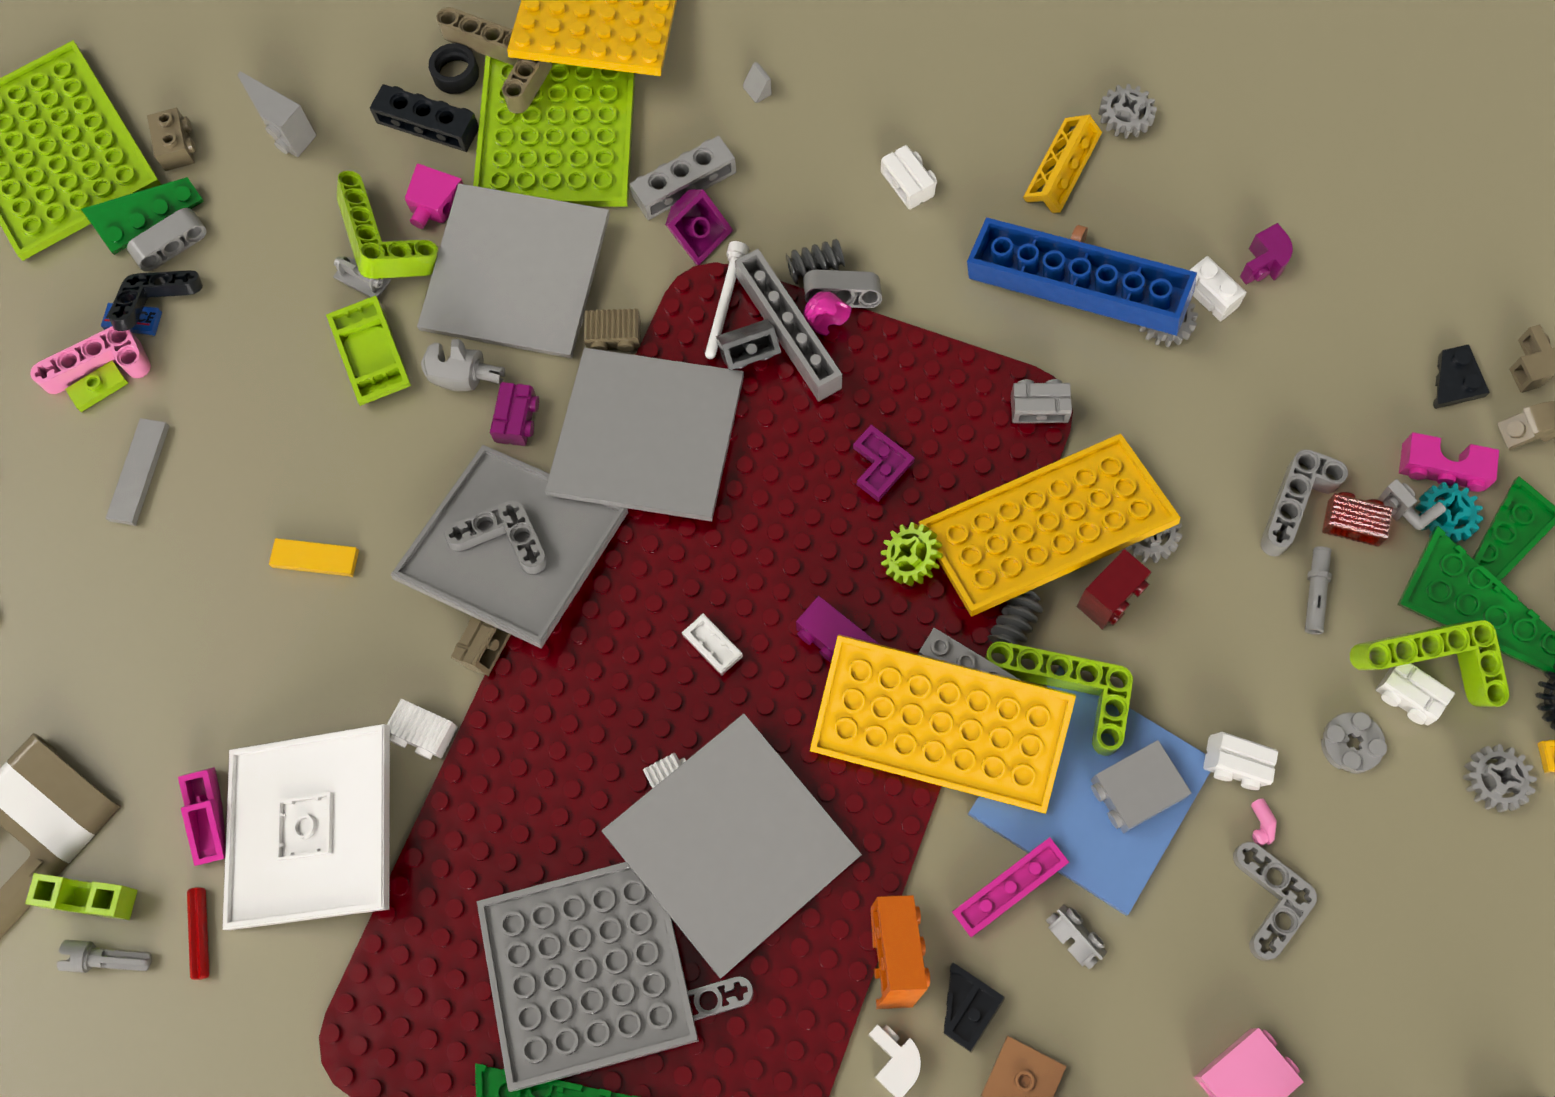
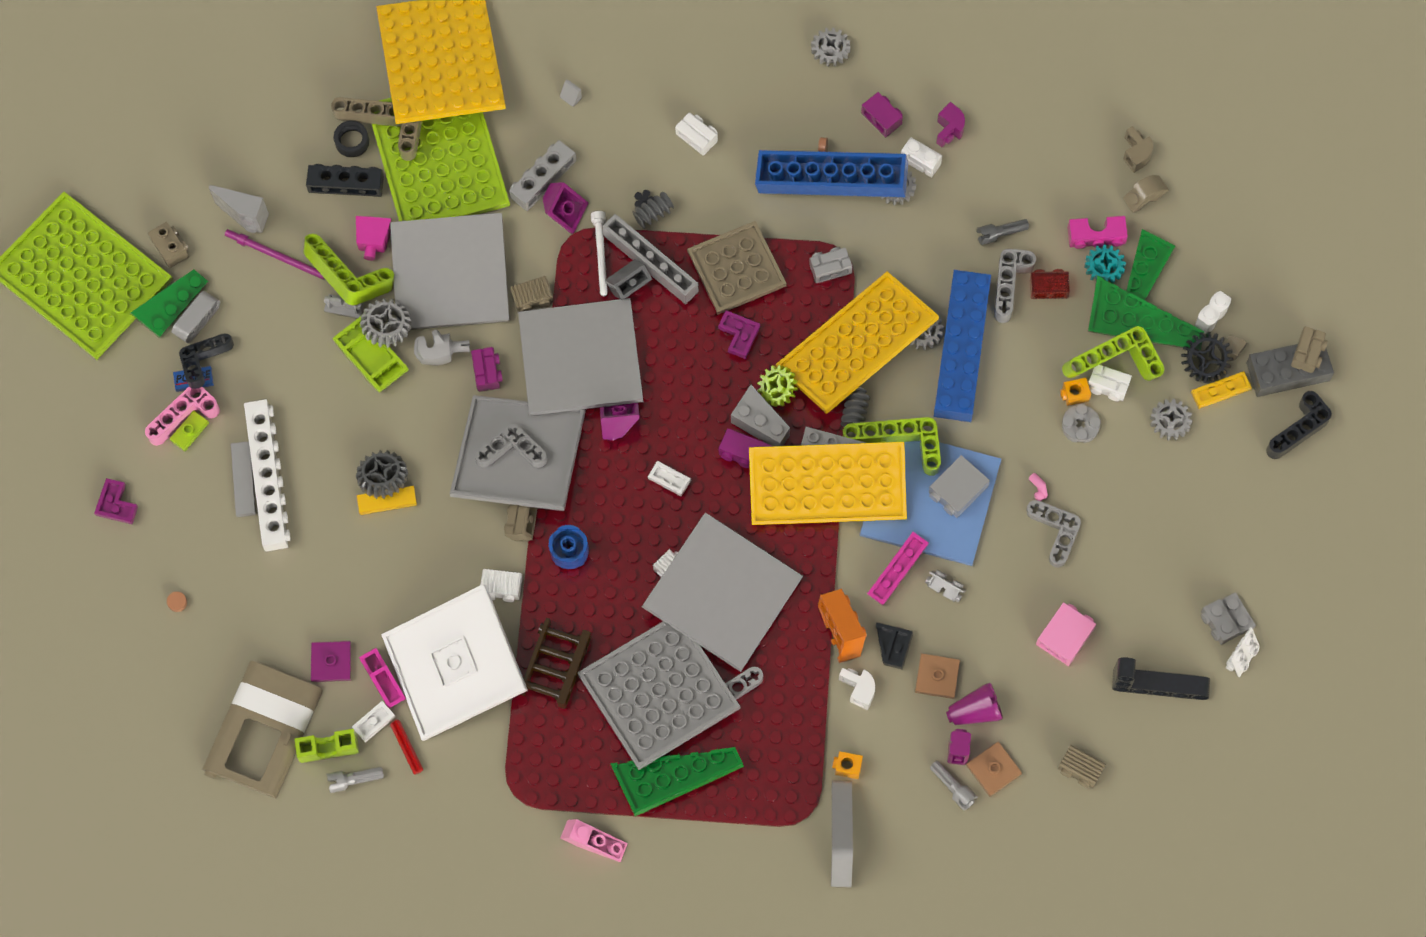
camera: 20 degrees left, 0 degrees up
(146, 768) = (330, 661): none -> magenta plate
(154, 485) = (270, 539): none -> white brick
(165, 879) = (373, 721): none -> white plate
(270, 160) = (243, 240): none -> magenta bar
(322, 514) = (373, 482): none -> dark grey gear
(401, 322) = (374, 317): none -> light grey gear
(461, 904) = (574, 659): none -> dark brown fence
(524, 689) = (558, 545): none -> blue brick
(665, 537) = (618, 420): none -> magenta slope
(803, 241) = (642, 198): none -> black plant
(825, 310) = (671, 242): dark pink hair -> none
(852, 287) = (677, 224): light grey beam -> none
(870, 595) = (760, 419): none -> light grey wedge
(906, 370) = (736, 267): none -> dark tan plate
(1069, 162) = (801, 92): yellow fence -> none
(1108, 594) = (907, 375): dark red brick -> none
(1174, 217) = (882, 114): none -> magenta brick
(1202, 574) = (962, 346): none -> blue brick
(1240, 760) = (1014, 453): white brick -> none
(1290, 421) = (991, 233): none -> dark grey piece
(1319, 579) = (1036, 328): light grey pin -> none
(1370, 686) = (1081, 386): none -> light orange brick
(1402, 499) = (1071, 264): light grey plate -> none
(1458, 377) = (1092, 174): black wing -> none

